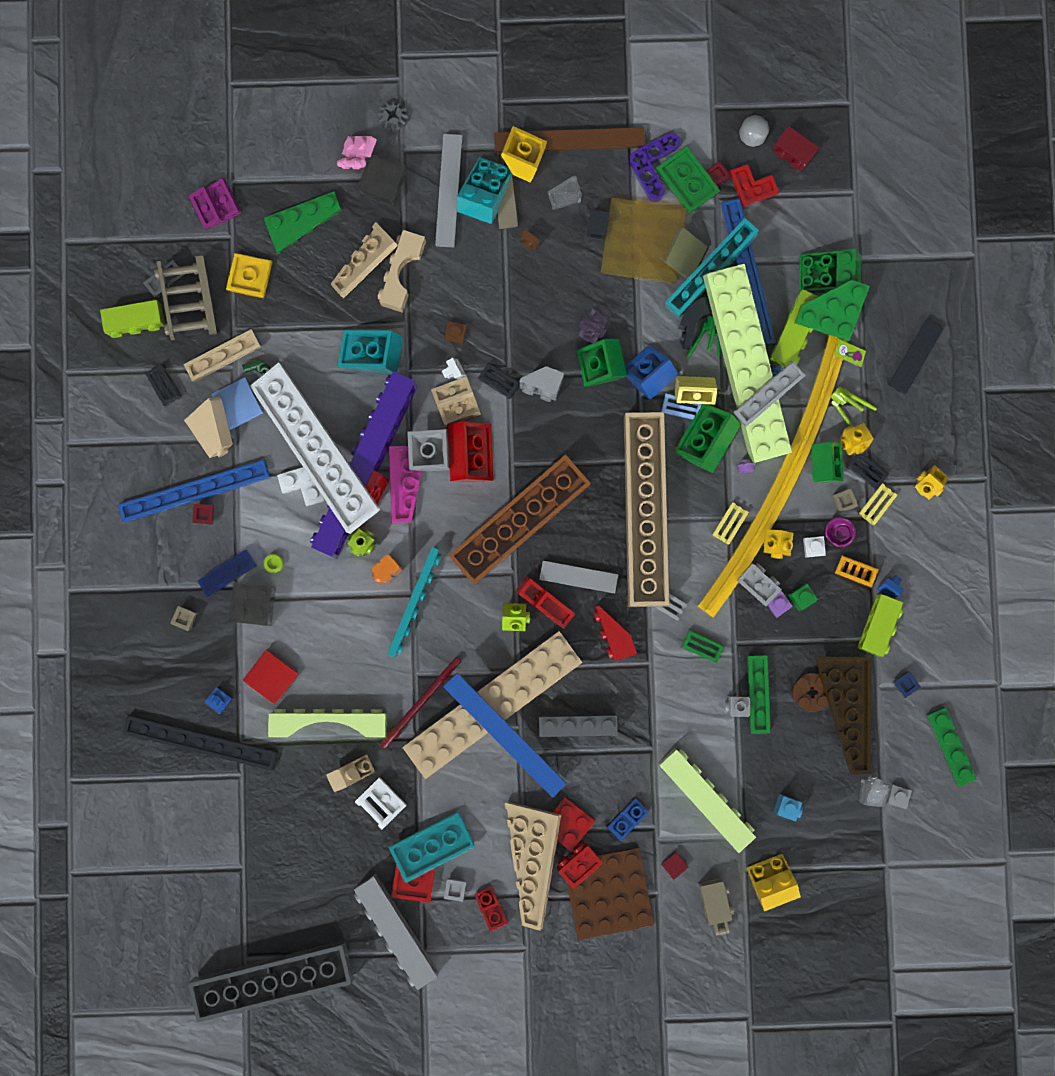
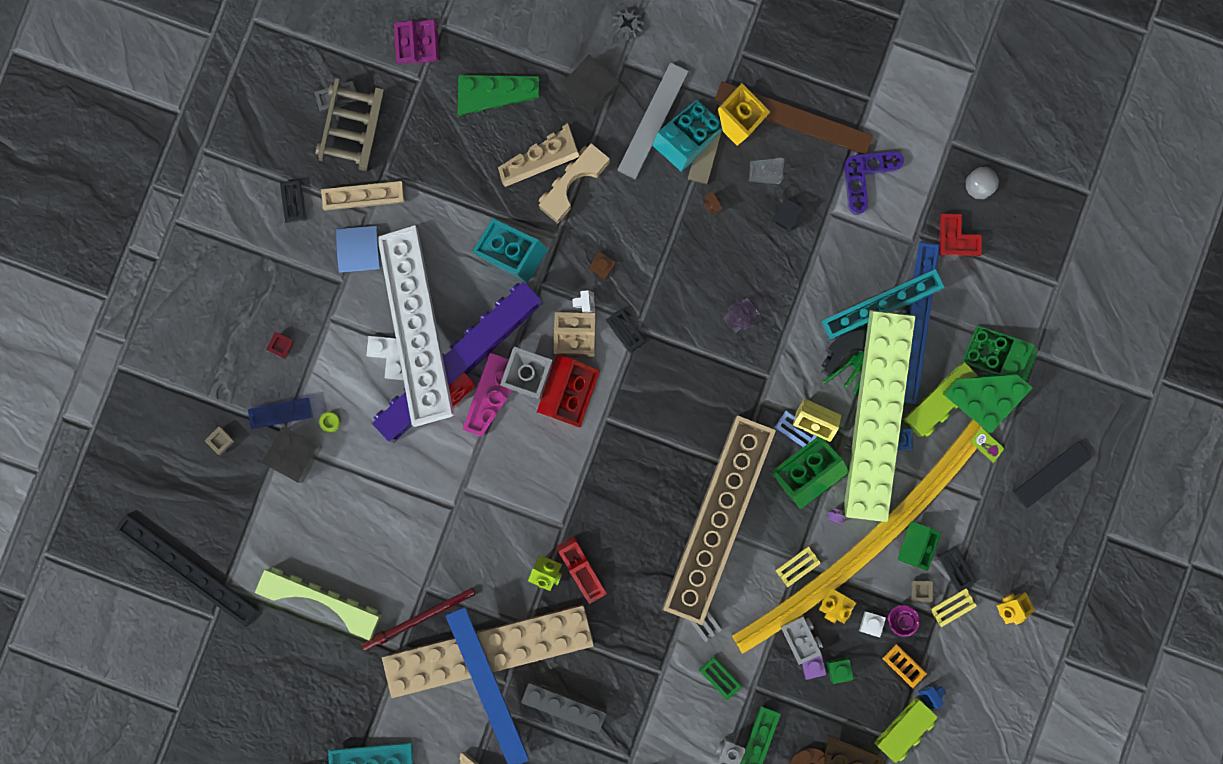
camera: 25 degrees right, 0 degrees up
(132, 318) = (289, 123): lime brick -> none
(194, 491) = (281, 318): blue tile -> none
(211, 427) = (322, 263): tan slope -> none
(218, 700) = (221, 535): blue tile -> none
(249, 275) = (421, 126): yellow tile -> none
(257, 365) = (392, 218): dark green arm -> none
(270, 676) = (281, 533): red slope -> none
(350, 773) = (320, 661): tan slope -> none
(355, 151) = (579, 42): bright pink plate -> none
(367, 547) = (432, 437): lime brick -> none
(385, 798) = (345, 701): white plate -> none
(386, 570) = (437, 474): orange brick -> none
(417, 595) = (446, 524): teal plate -> none
(519, 520) = (588, 479): dark orange brick -> none
(543, 382) = (669, 351): light grey slope -> none
(578, 577) = (625, 558): light grey tile -> none
(601, 362) = (734, 354): green slope -> none
(618, 639) = (639, 637): red slope -> none
(639, 240) = (826, 248): clear yellow plate -> none
(650, 371) = (779, 382): blue slope -> none
(684, 252) = (862, 278): olive tile -> none
(687, 180) = (895, 206): green plate -> none
(718, 173) = (927, 212): dark red tile -> none
(769, 393) = (887, 455): light grey tile -> none
(795, 149) = (1015, 218): dark red brick -> none
(841, 396) = (963, 484): lime plant -> none
(856, 439) = (957, 534): yellow brick -> none

